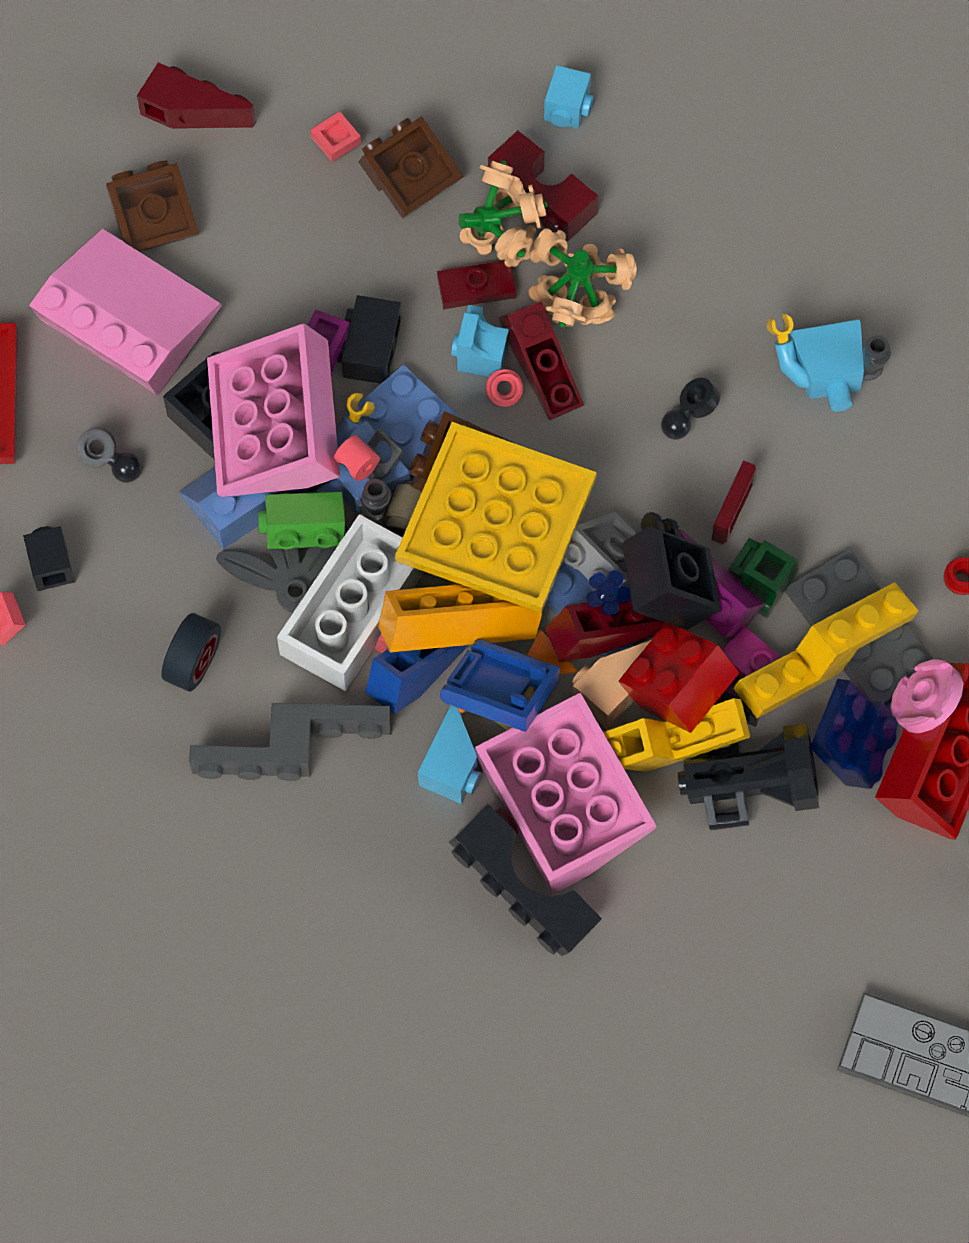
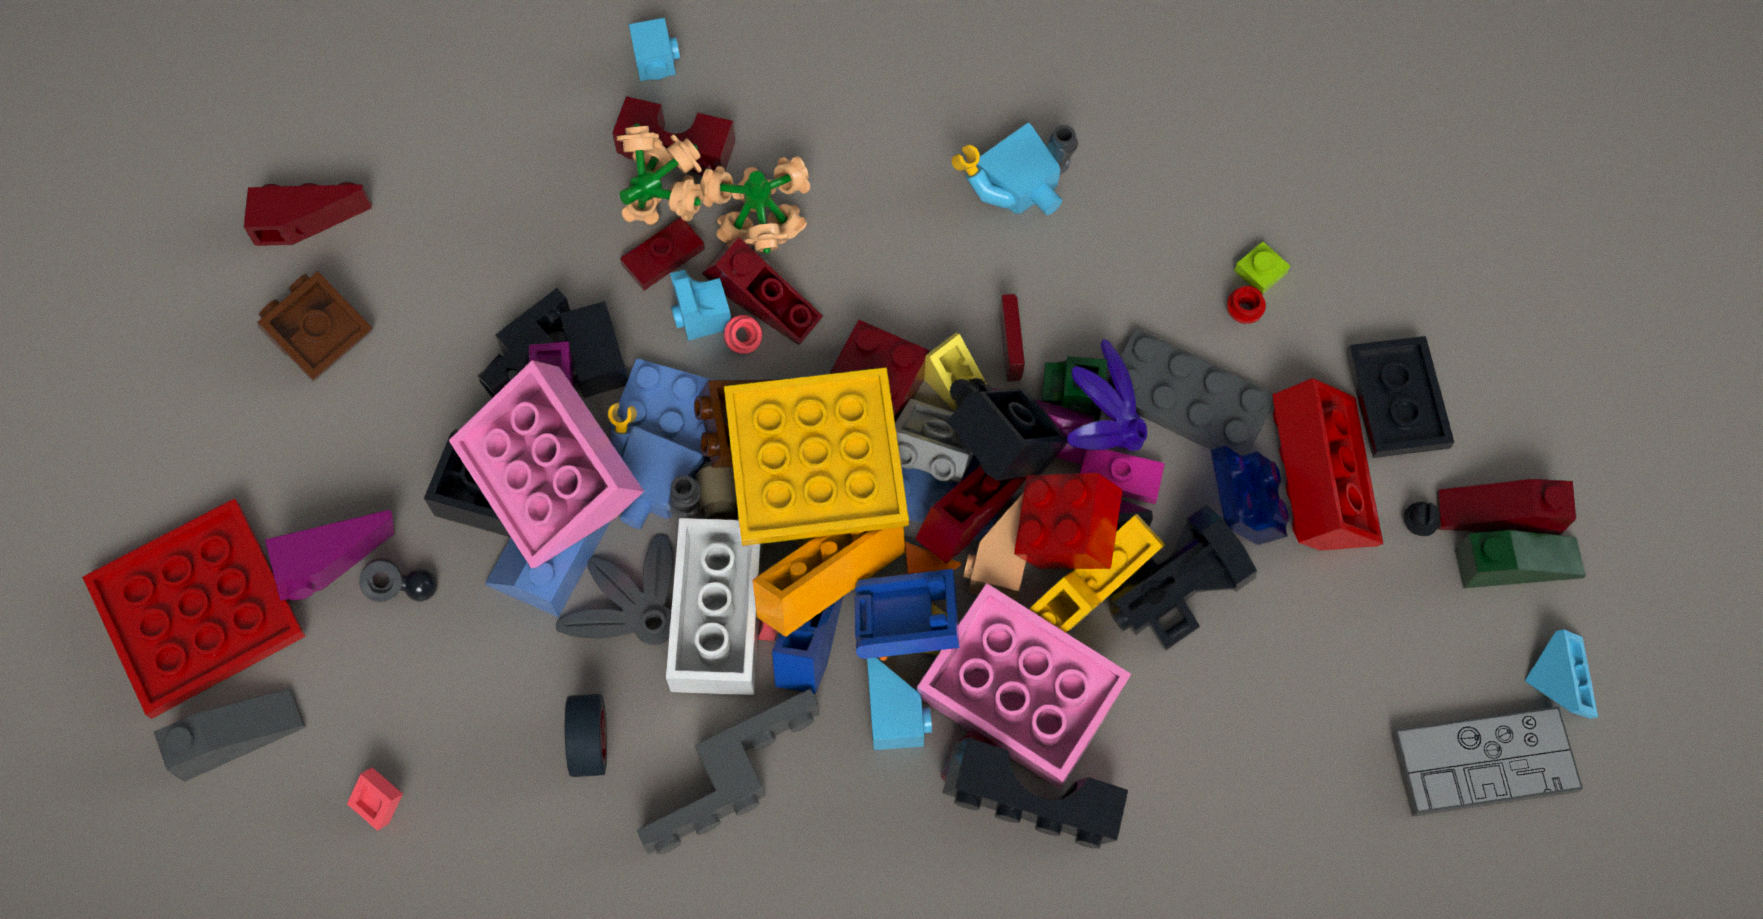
camera: 30 degrees left, 0 degrees up
(48, 558) = (390, 713): black brick -> none
(57, 402) = (318, 556): none -> magenta slope
(125, 309) = (338, 434): bright pink slope -> none
(302, 520) = (626, 550): bright green brick -> none
(323, 296) = (515, 338): none -> black plate
(335, 136) = (456, 180): coral plate -> none
(364, 460) = (658, 463): coral leg -> none
(409, 166) = (541, 174): reddish brown plate -> none
(607, 592) = (960, 474): clear blue plant -> none
(620, 477) = (874, 349): none -> dark red brick
(665, 497) = (949, 363): none -> light yellow slope
(697, 400) = (916, 291): black plate -> none
(786, 624) = (1127, 427): none -> dark purple plant
(825, 650) = (1176, 431): yellow bracket -> none
(927, 696) = (1292, 426): bright pink tile -> none

